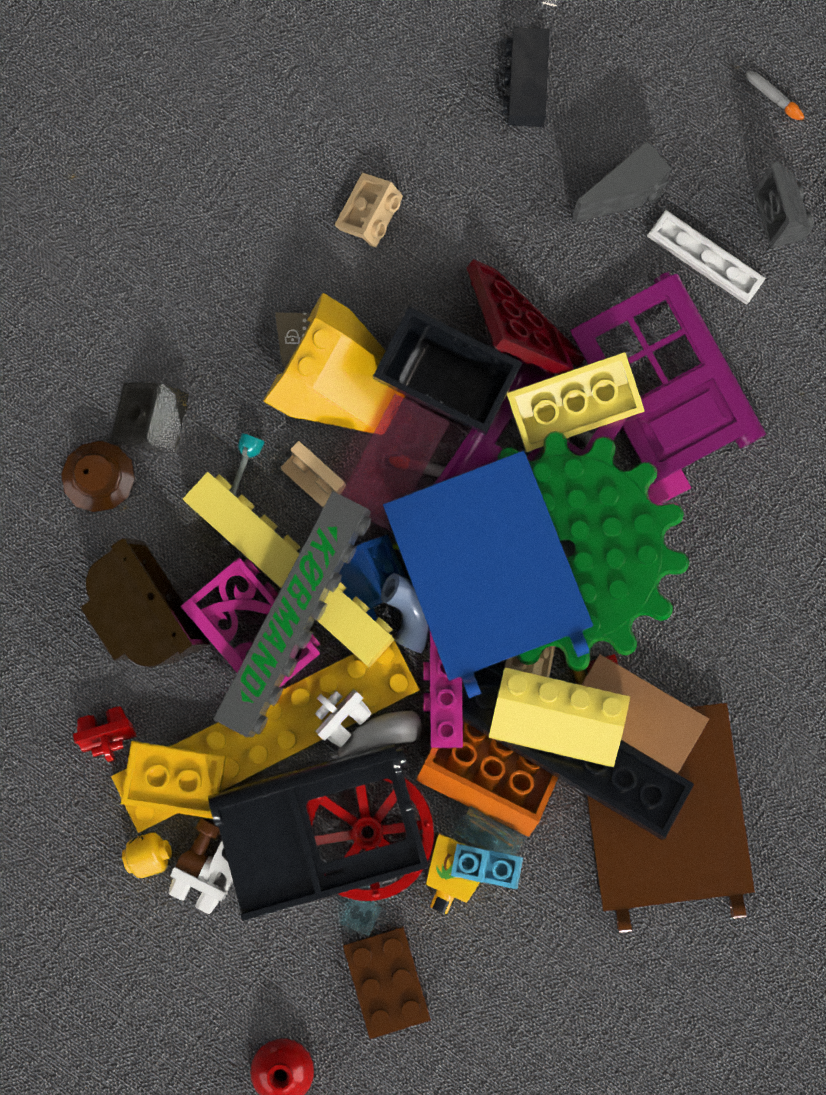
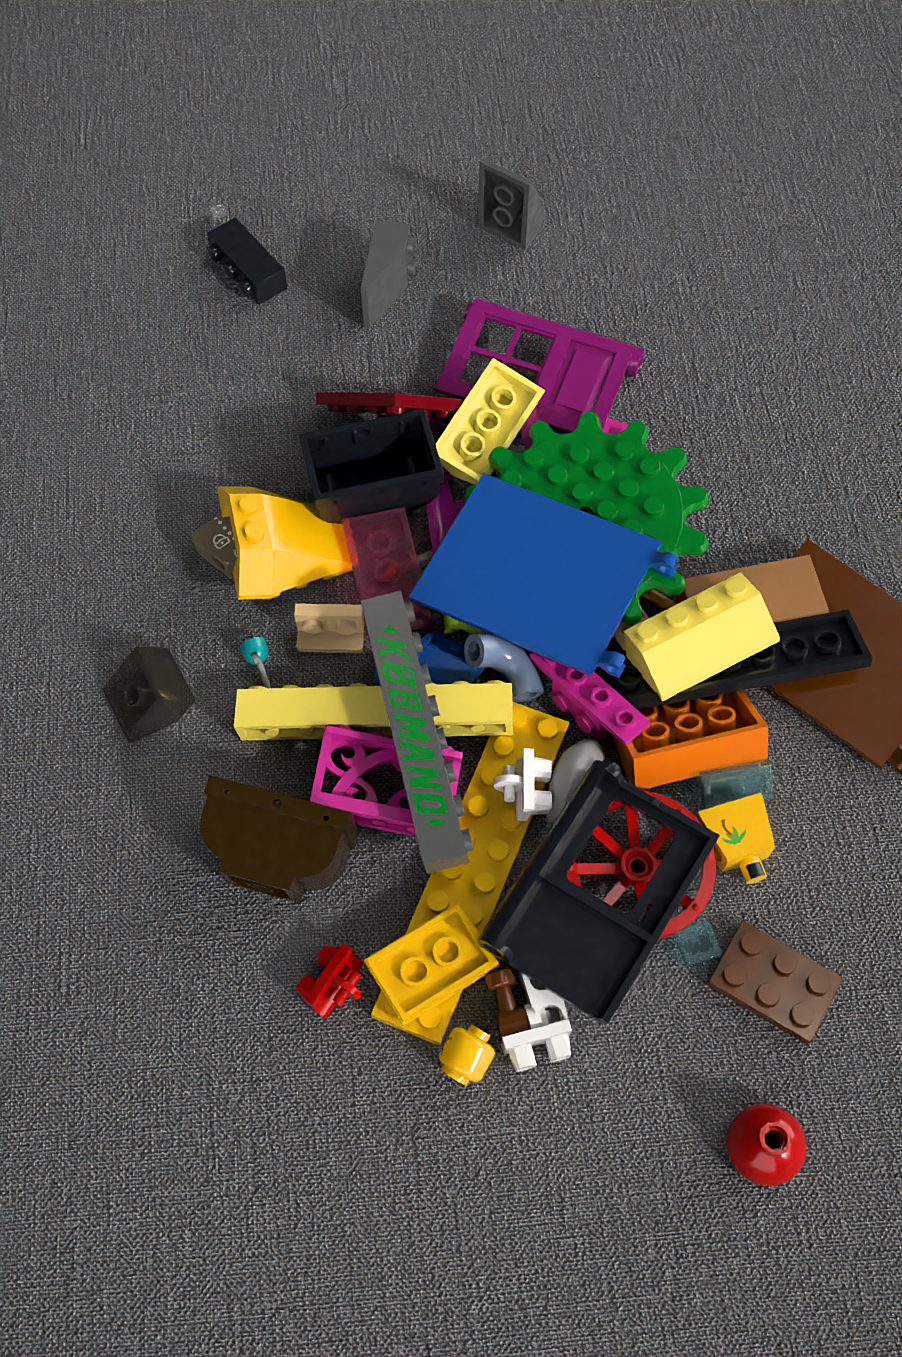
camera: 40 degrees left, 20 degrees down
(108, 477) = (148, 784): reddish brown hat -> none
(369, 209) = (202, 420): tan bracket -> none
(487, 866) = (762, 800): medium azure slope -> none
(706, 257) = (486, 282): white tile -> none
(775, 95) = (453, 162): light grey piece -> none

